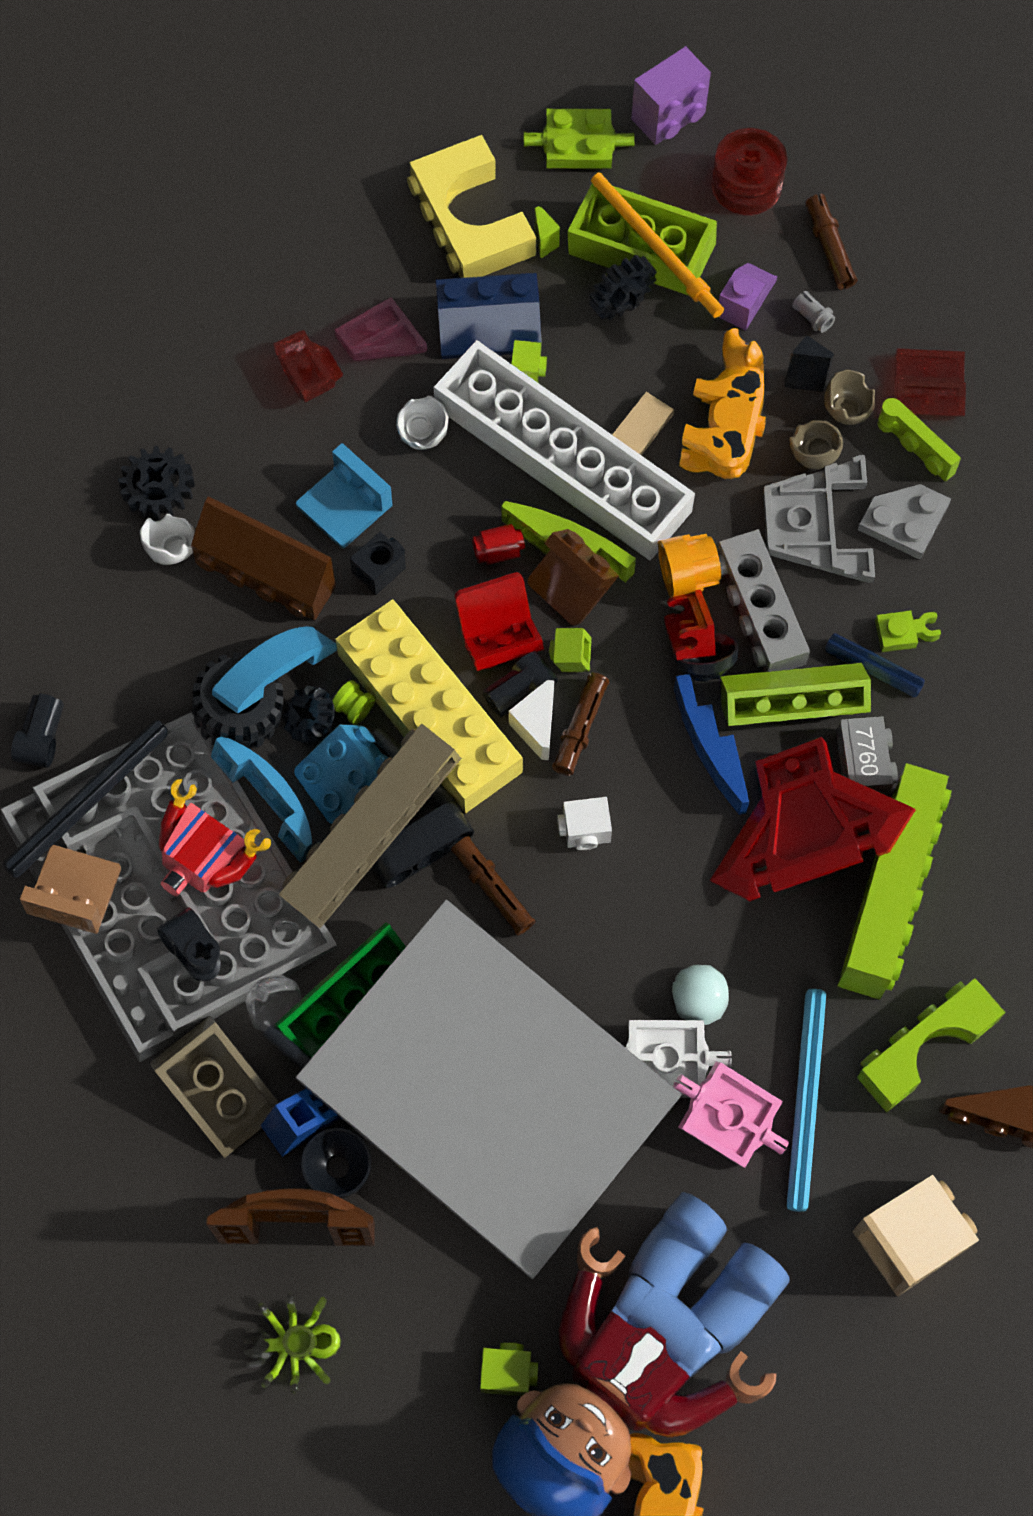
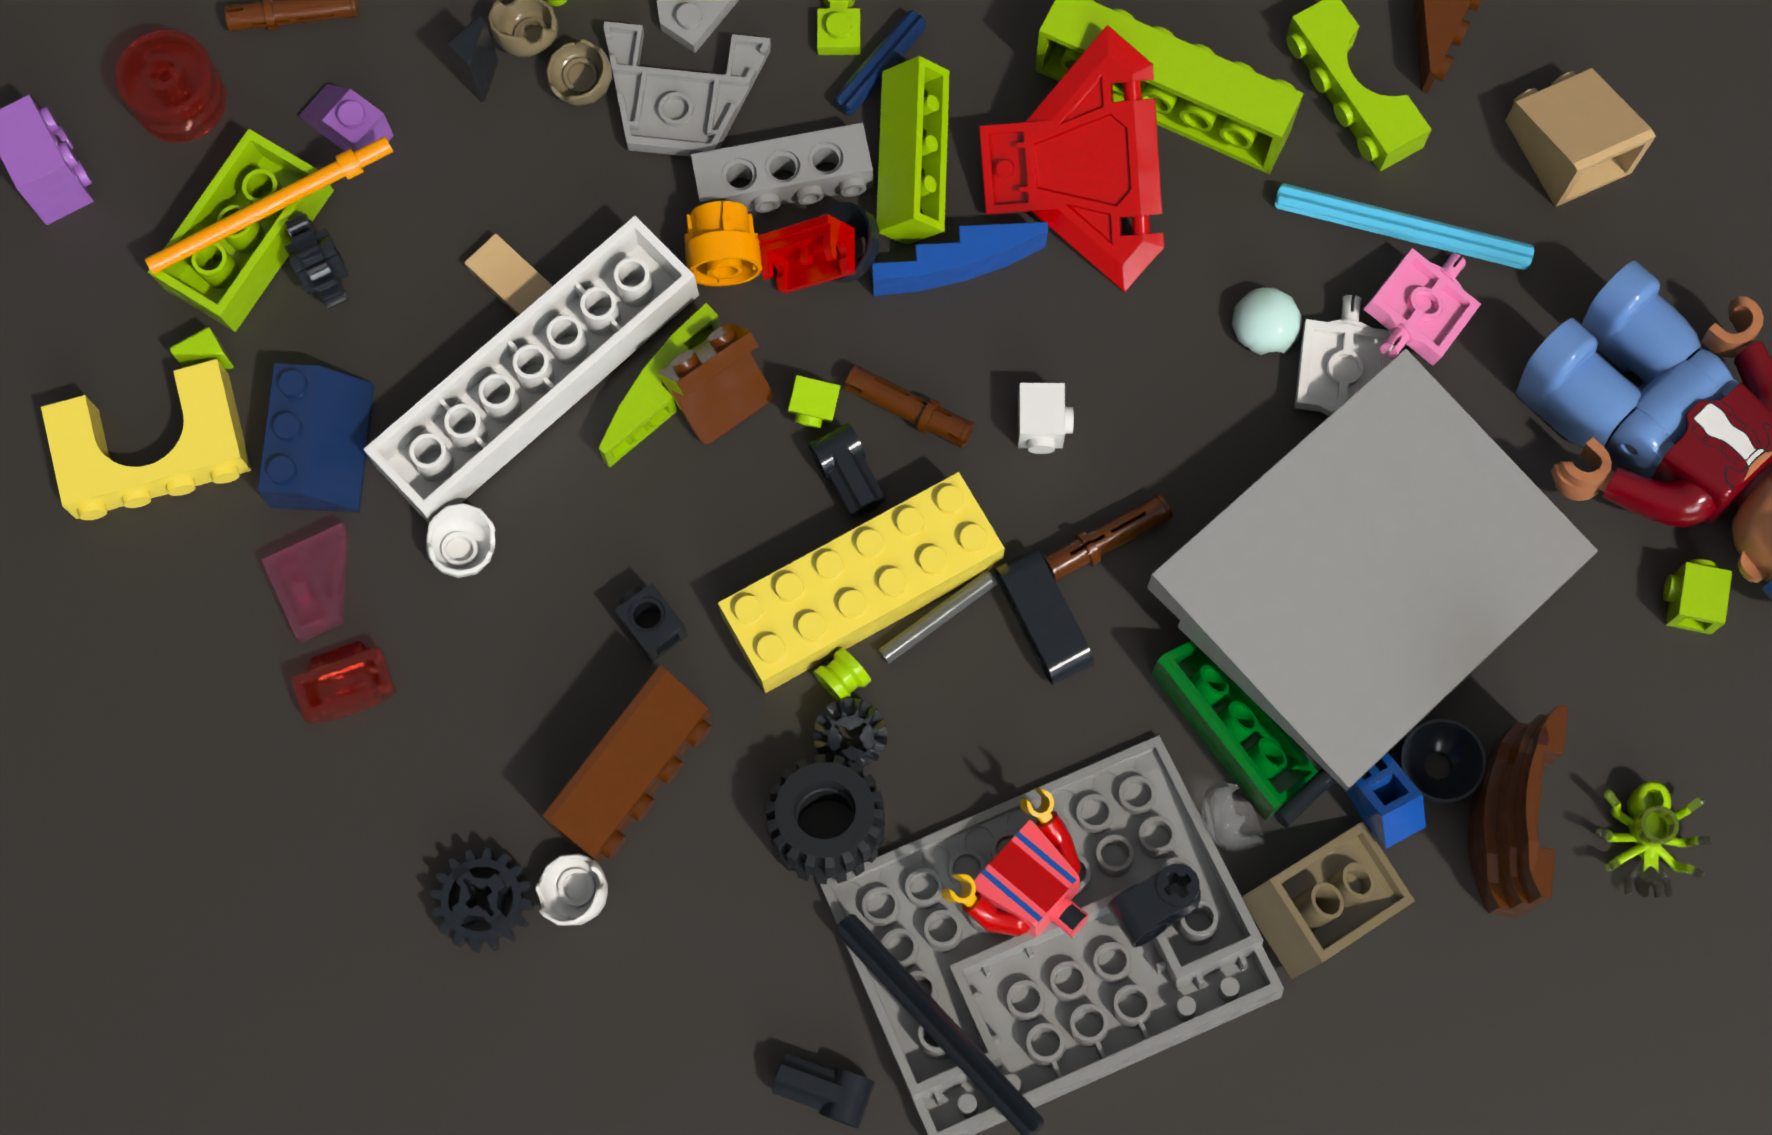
camera: 80 degrees left, 5 degrees up
(72, 889) = (1062, 1051): medium nougat bracket -> none
(241, 761) = (1006, 764): dark azure slope -> none
(267, 662) = (790, 766): dark azure slope -> none
(340, 769) = (936, 697): dark azure bracket -> none
(346, 498) = (551, 654): dark azure bracket -> none
(369, 825) = (1029, 664): dark tan brick -> none
(497, 621) = (769, 482): red bracket -> none
(498, 544) = (650, 470): red brick -> none
(528, 359) = (393, 397): lime plate -> none
(533, 719) = (899, 456): white slope -> none
(579, 138) = (65, 292): lime plate -> none
(734, 412) = (519, 159): light orange animal -> none
(814, 312) = (389, 47): light grey pin -> none
(865, 753) = (999, 89): light grey brick -> none

